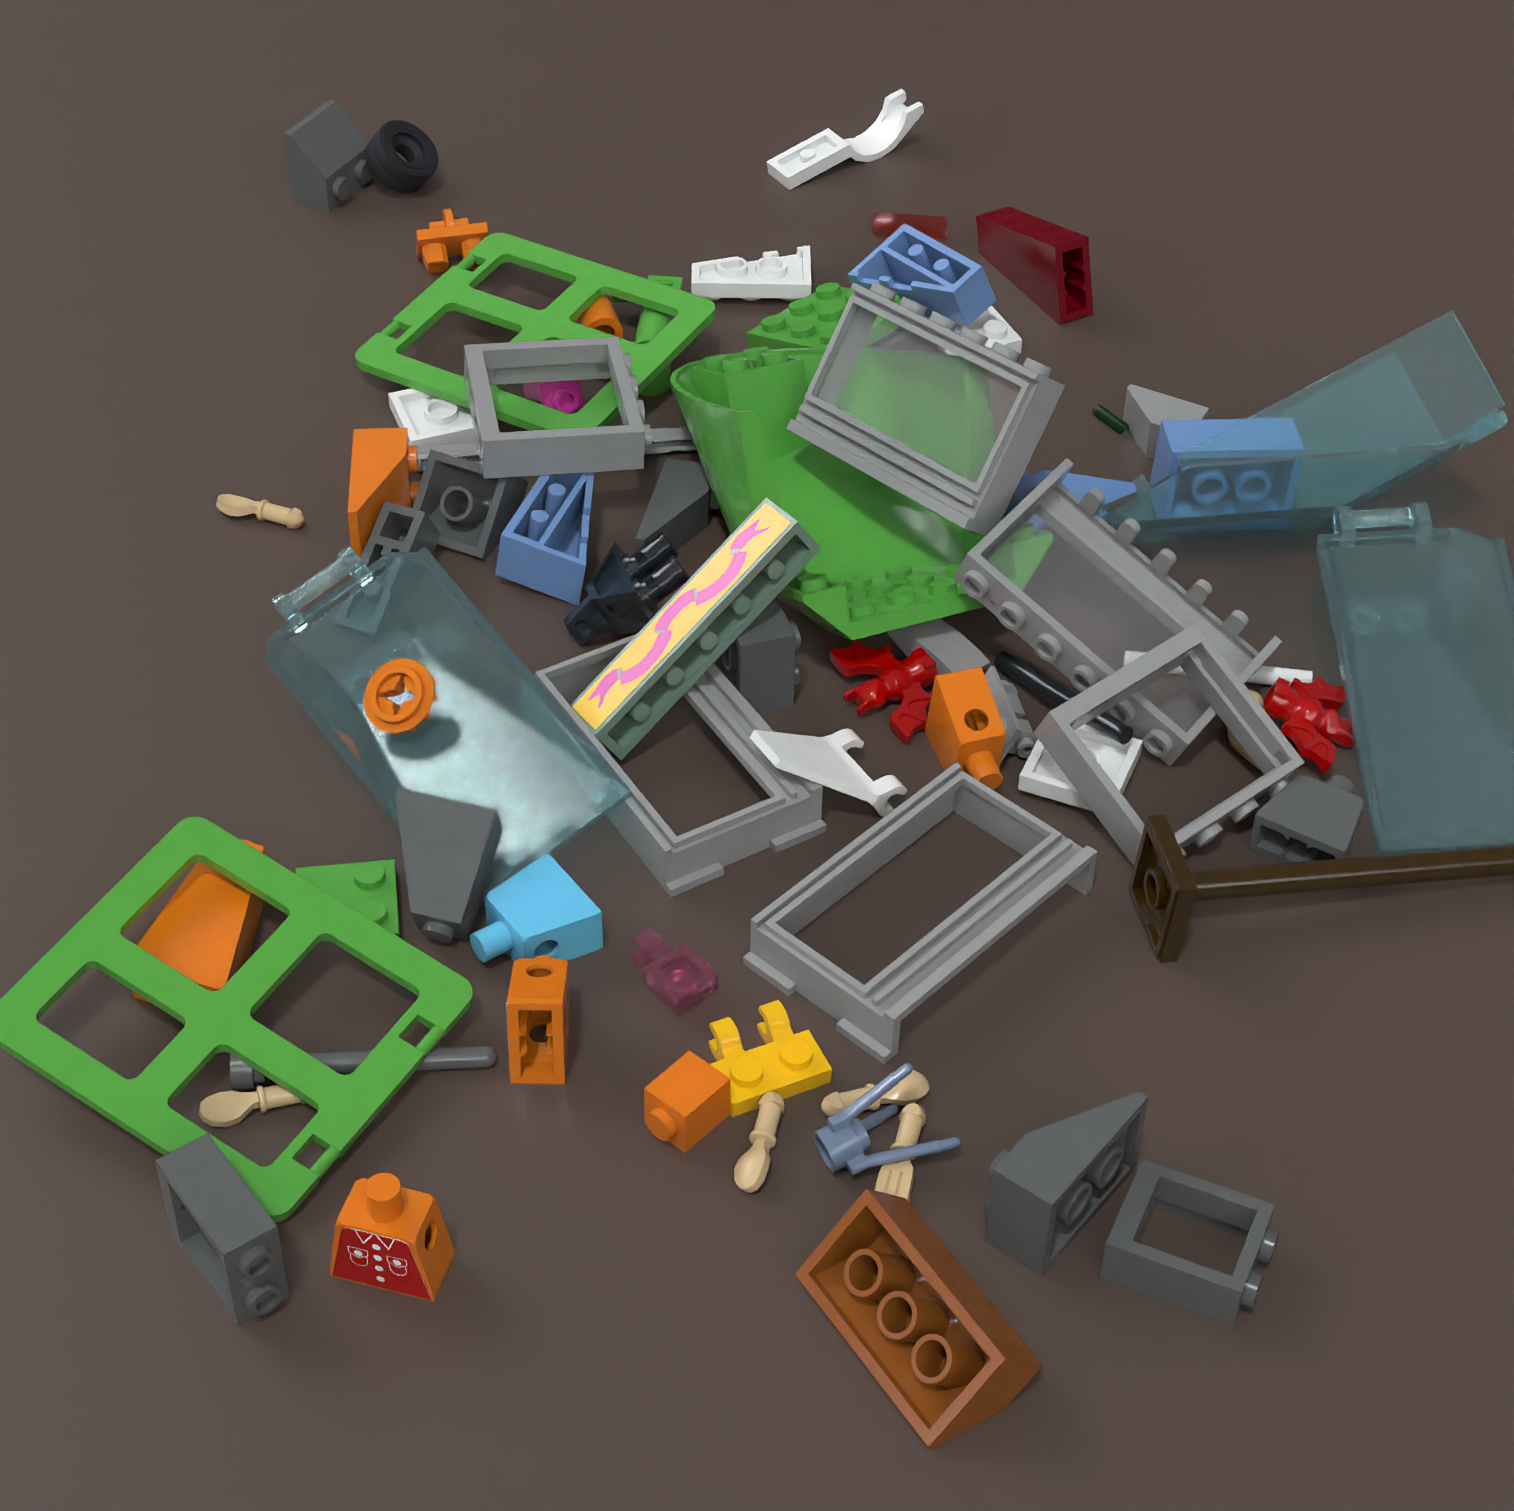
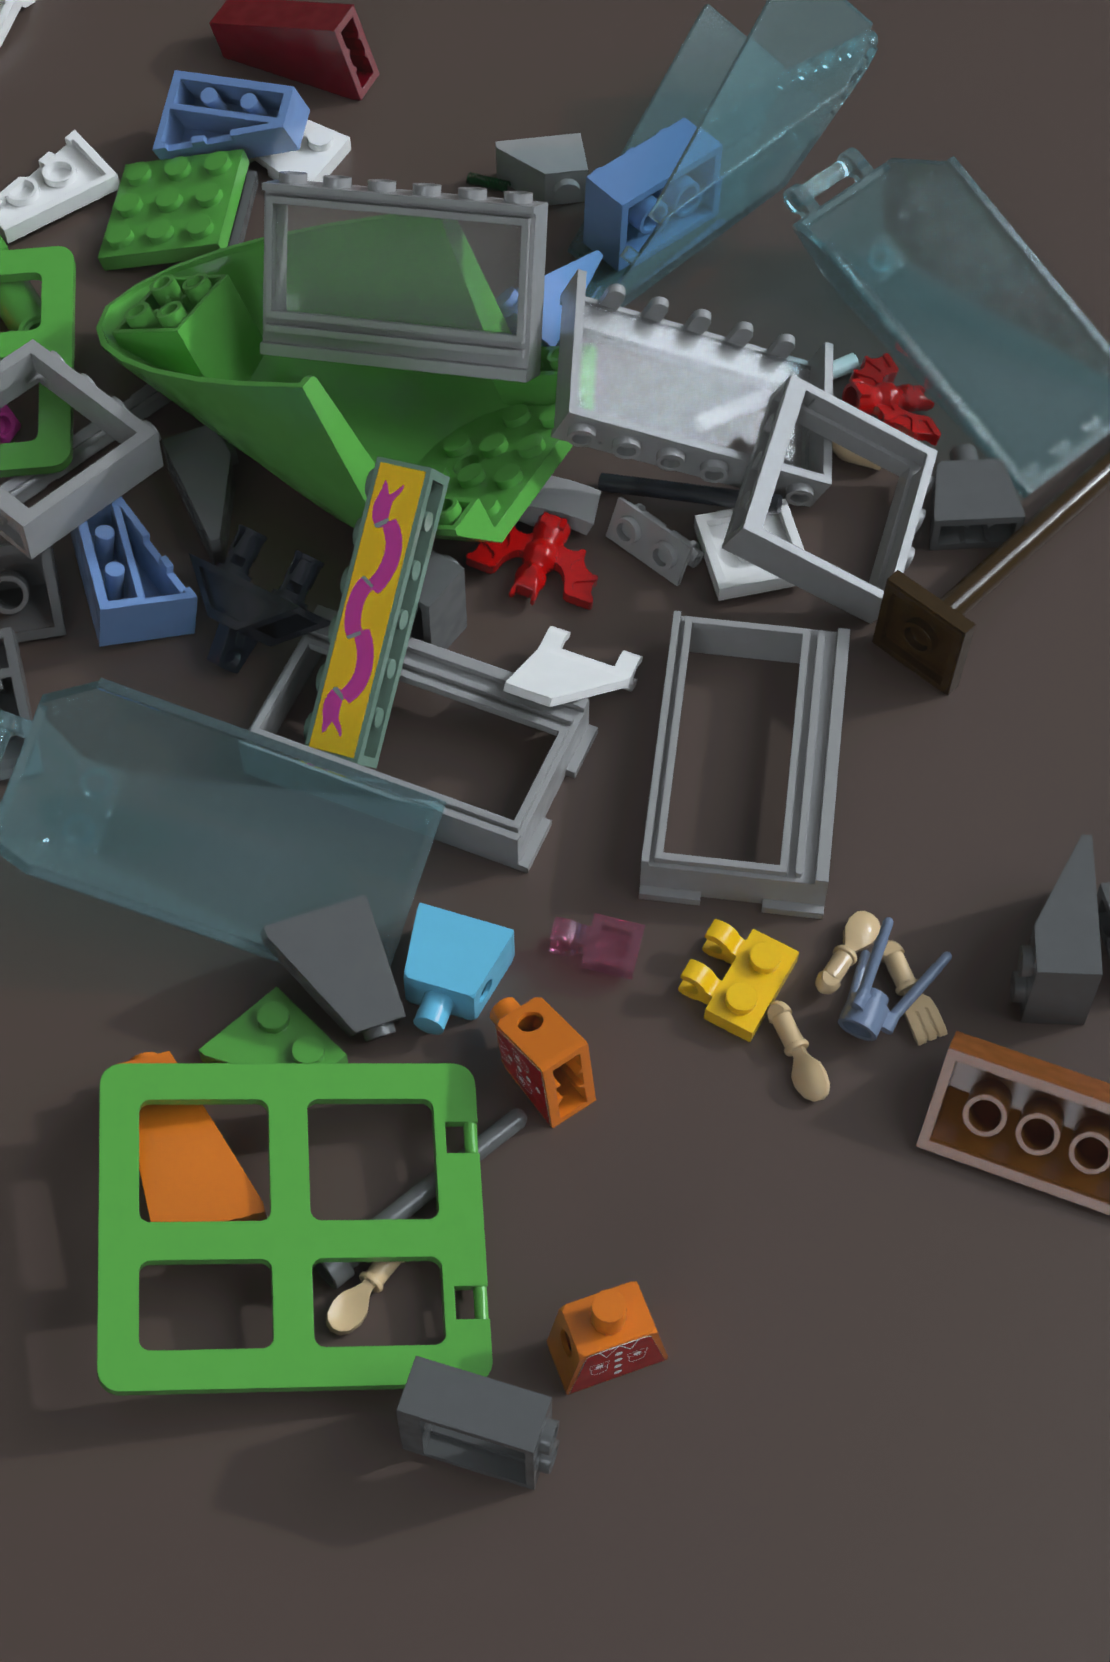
camera: 35 degrees left, 15 degrees up
(390, 681) = (145, 851): orange gear -> none
(686, 1101) = (719, 1056): orange brick -> none
(887, 223) = (141, 59): clear red axle -> none
(966, 725) = (650, 573): orange torso -> none

